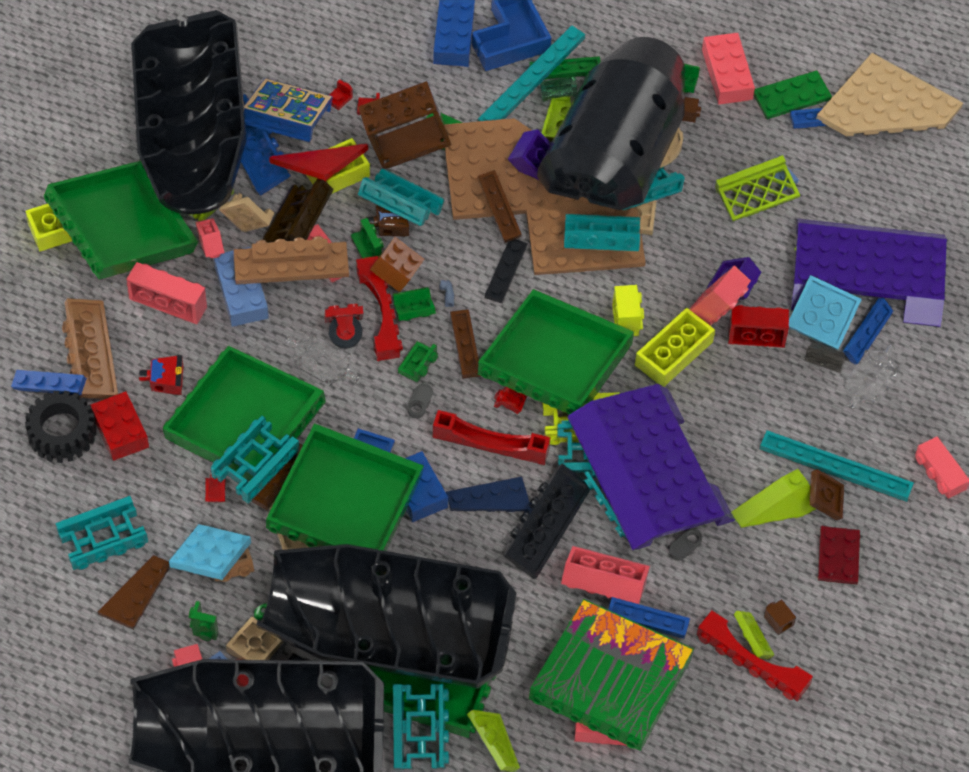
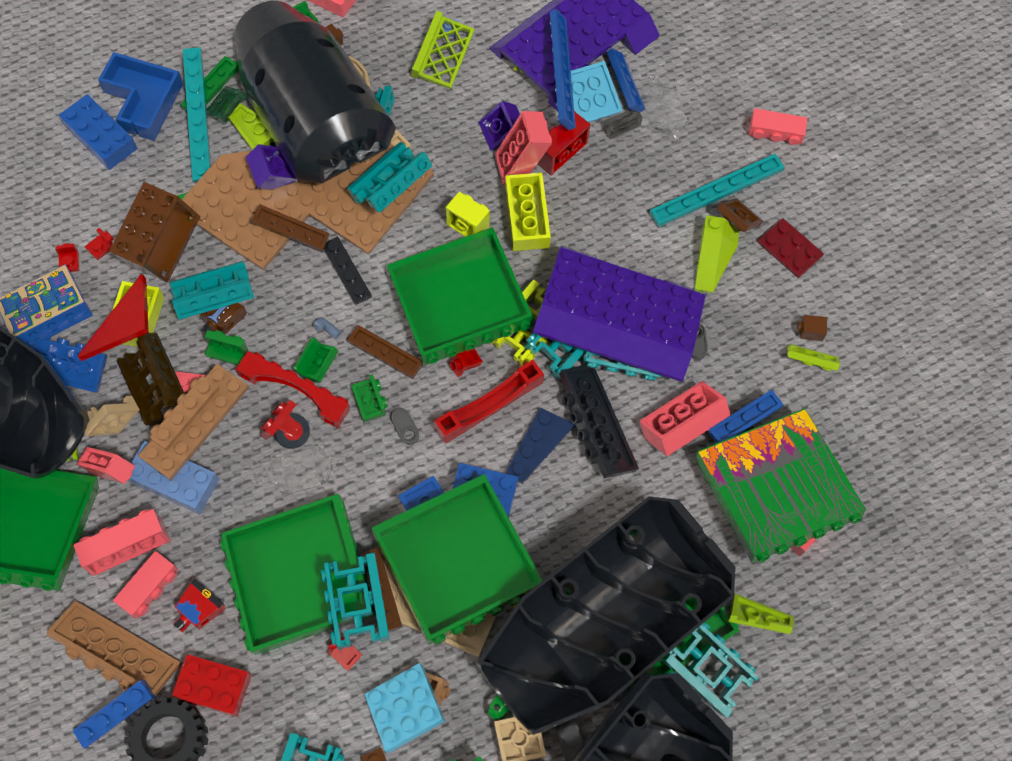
camera: 50 degrees left, 10 degrees up
(151, 332) = (146, 585): none -> coral brick
(397, 264) = (271, 343): dark orange brick -> none
(790, 681) = (790, 380): red arch -> none
(814, 272) = (562, 70): none -> blue plate

